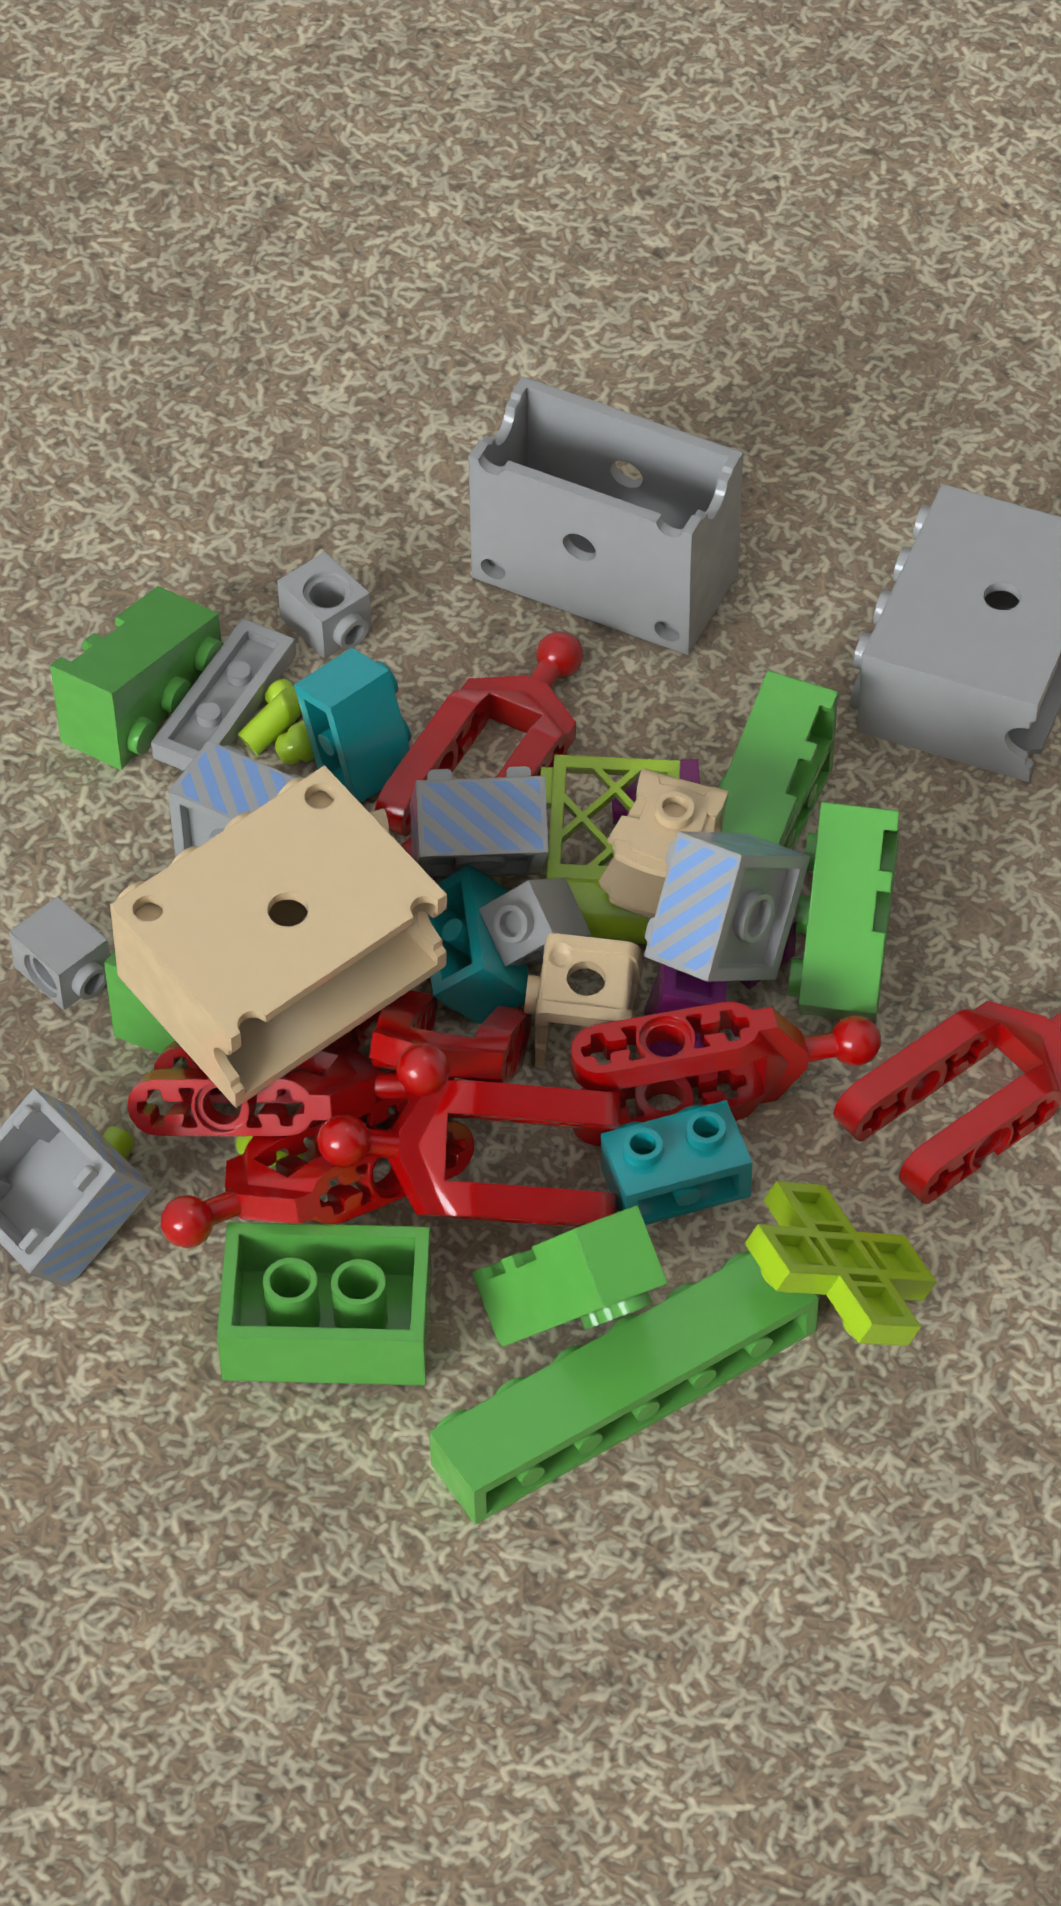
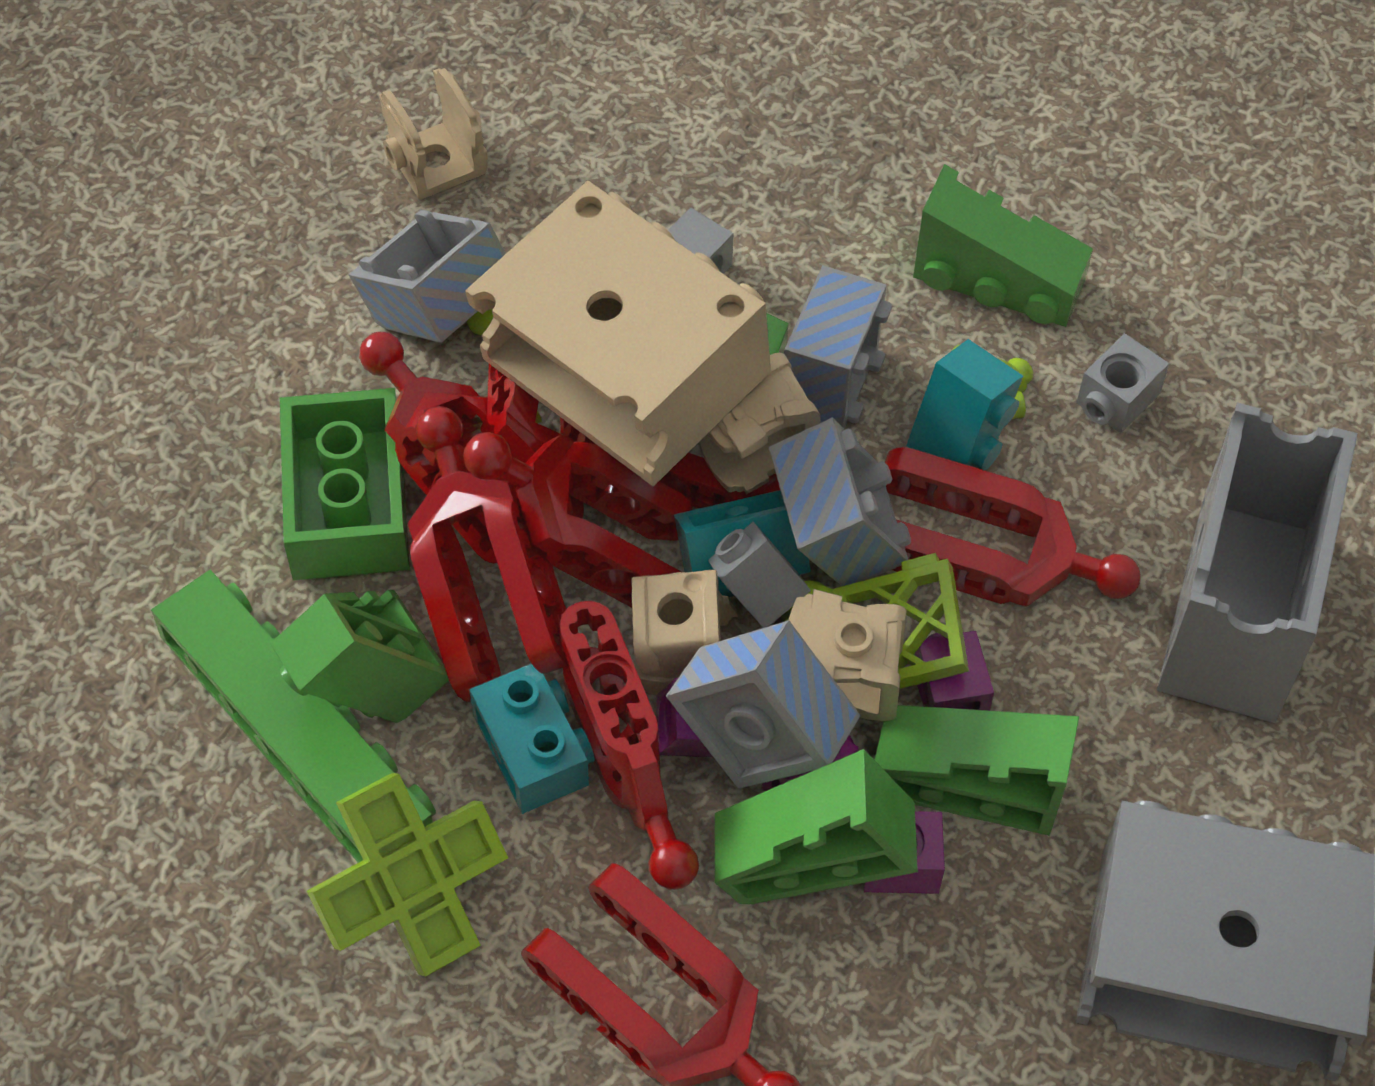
camera: 80 degrees right, 5 degrees up
(225, 693) = (1000, 328): light grey plate -> none

